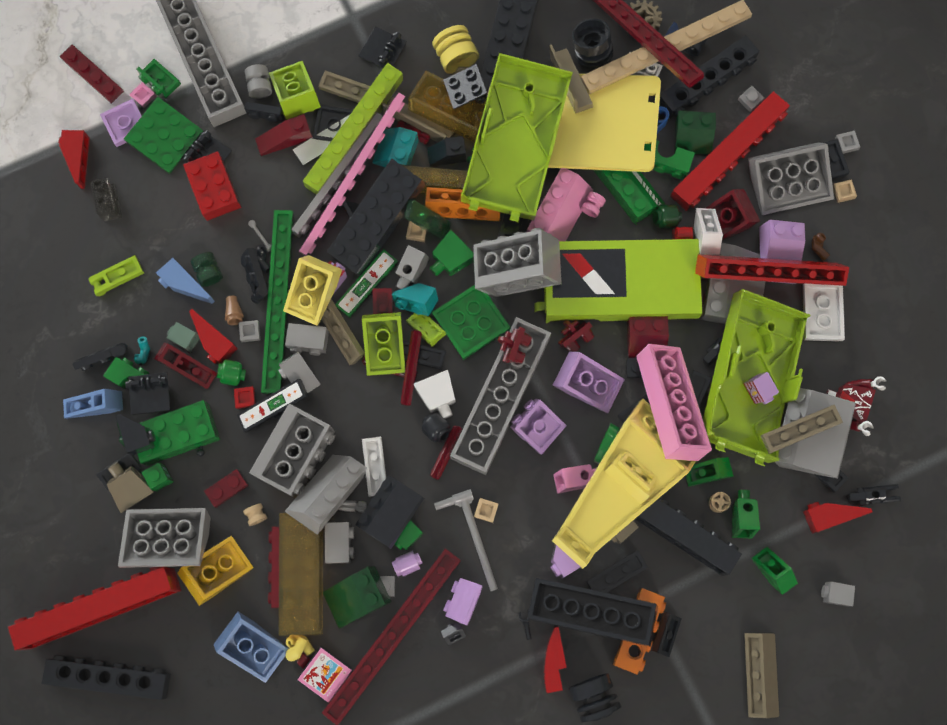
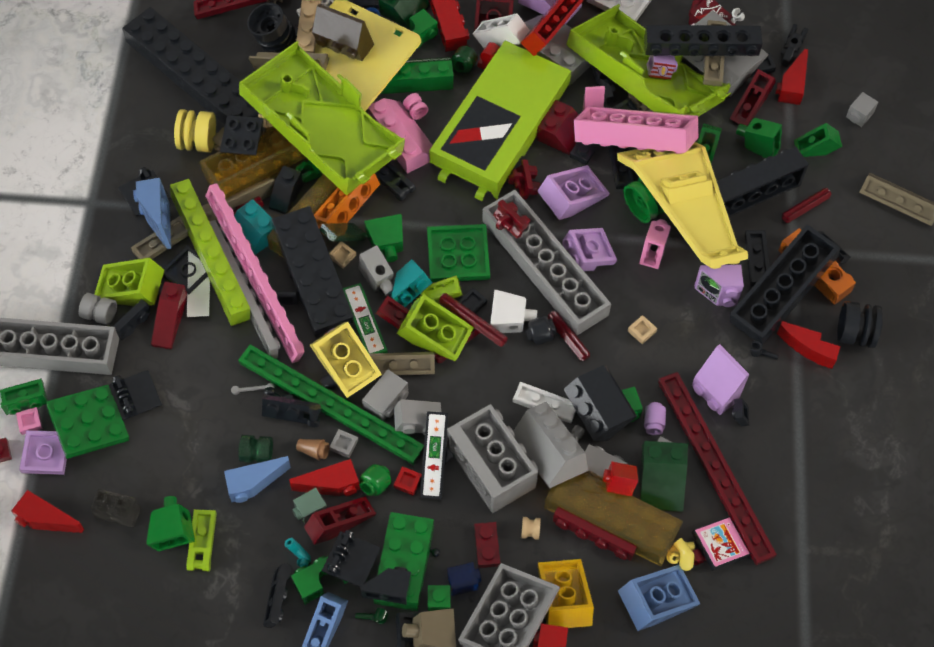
camera: 65 degrees left, 15 degrees down
(112, 246) = (170, 526): none -> green torso
(185, 485) = (463, 578): none -> clear blue brick
(212, 186) = (174, 401): red brick -> none
(324, 564) = (621, 478): none -> red brick
(359, 67) = (155, 208): none -> medium blue slope
(463, 500) = (621, 343): light grey bar -> none
(517, 263) = (448, 181): light grey brick -> none
(613, 103) = (341, 33): none -> slope
(689, 349) = (594, 97): none -> bright pink slope
(701, 591) = (806, 205): none -> dark red axle
(721, 499) = (735, 147): tan wheel -> none
(786, 488) = (753, 98): none -> dark red slope
(812, 417) = (703, 40): none -> black brick

